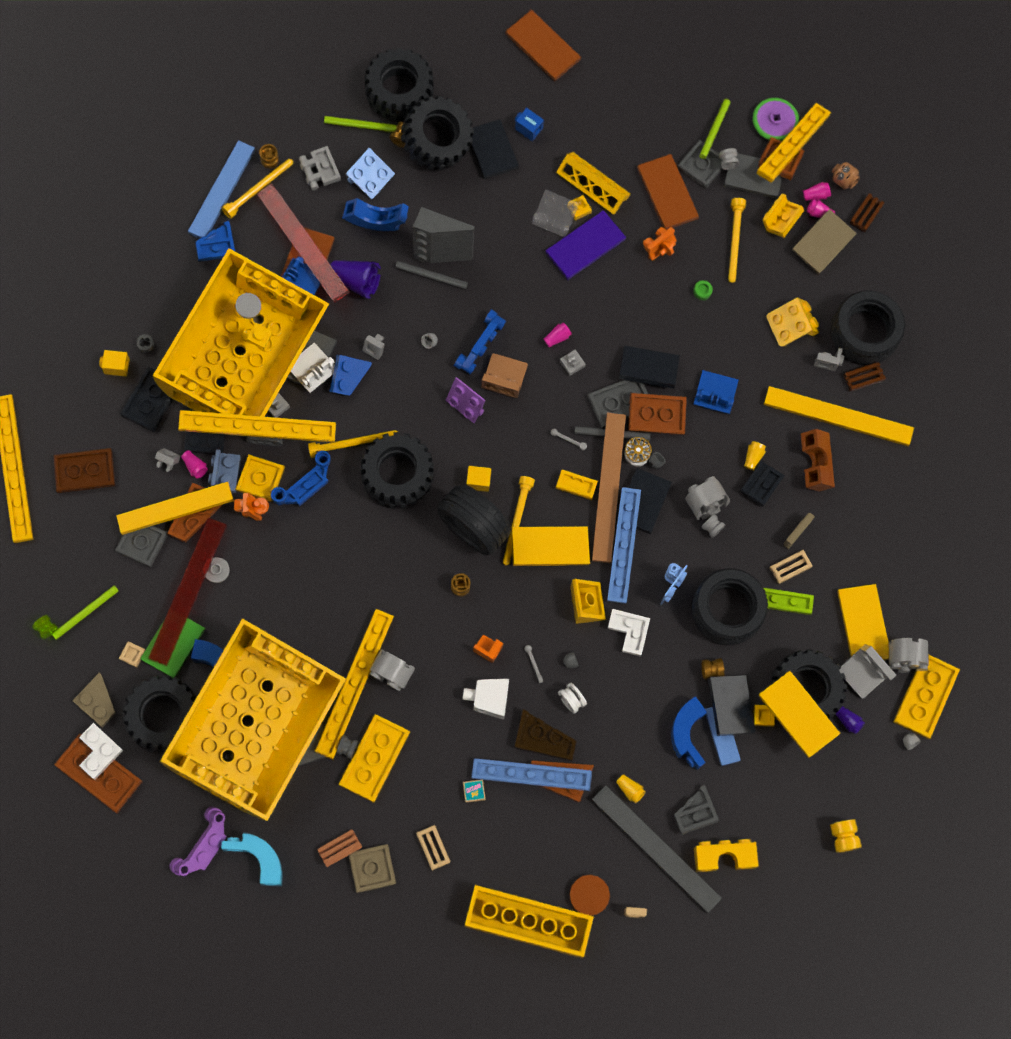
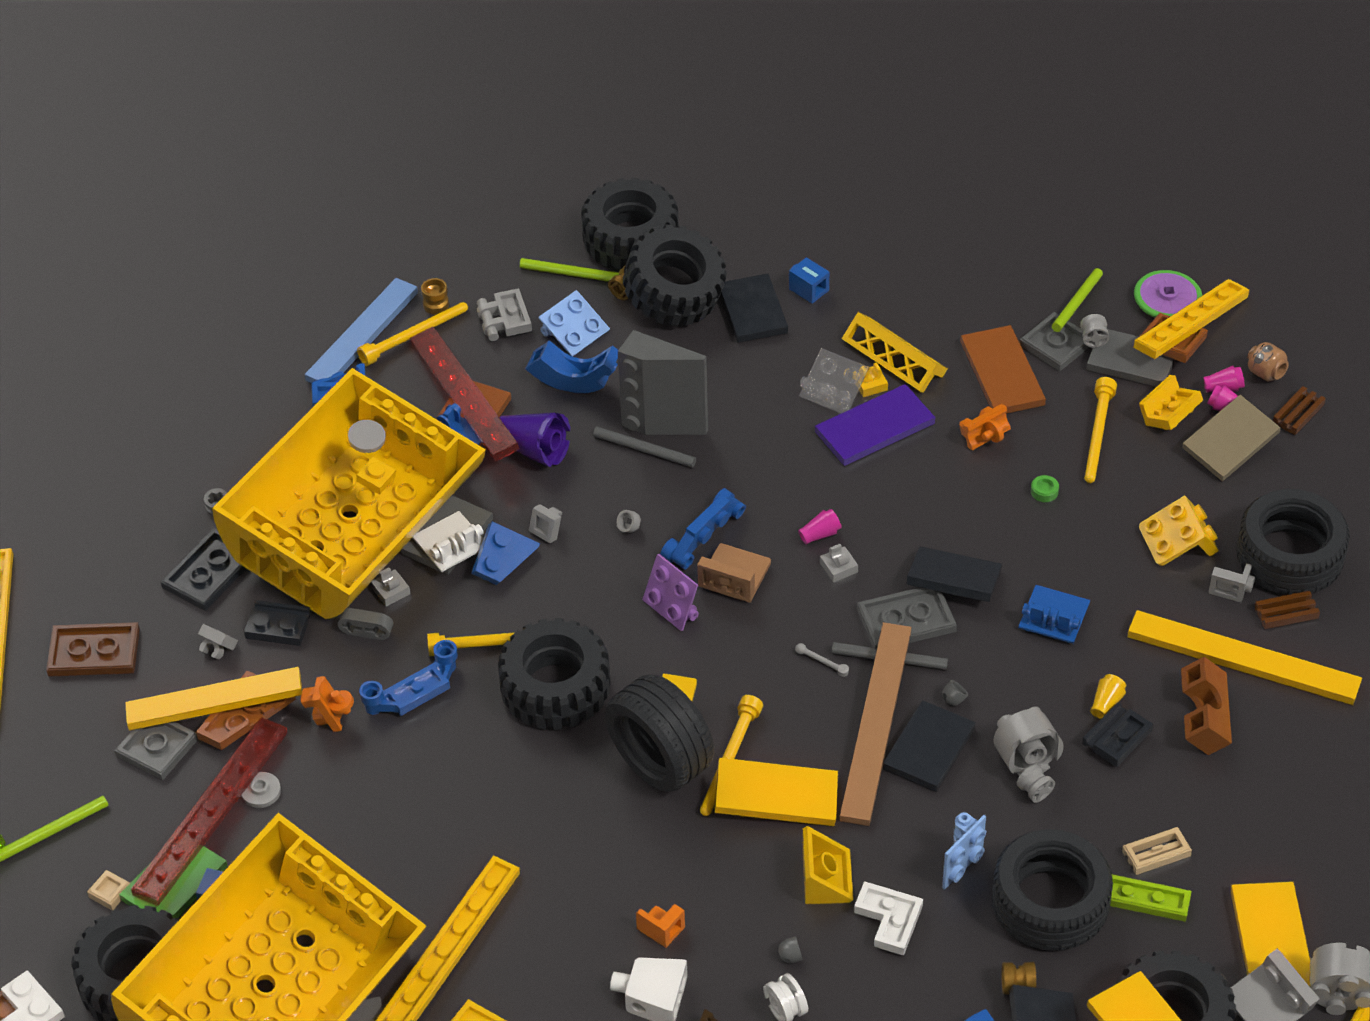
camera: 15 degrees right, 25 degrees down
(96, 701) = (39, 948): dark tan wing -> none
(114, 363) = (167, 519): yellow brick -> none
(195, 466) = (256, 652): dark pink cone -> none
(225, 469) = (301, 654): sand blue bracket -> none
(257, 426) = (352, 587): yellow tile -> none
(259, 477) = (349, 669): yellow tile -> none
(392, 669) = (503, 934): light grey brick -> none
(458, 587) = (629, 832): pearl gold wheel -> none
(528, 648) = (724, 931): light grey hinge -> none
(543, 45) = (840, 198): dark orange tile -> none
(576, 484) = (827, 715): yellow plate -> none
(624, 545) = (891, 798): medium blue plate -> none
(637, 452) = (925, 681): white wheel -> none
(657, 414) = (961, 633): dark orange tile -> none
(798, 530) = (1171, 799): dark tan tile -> none

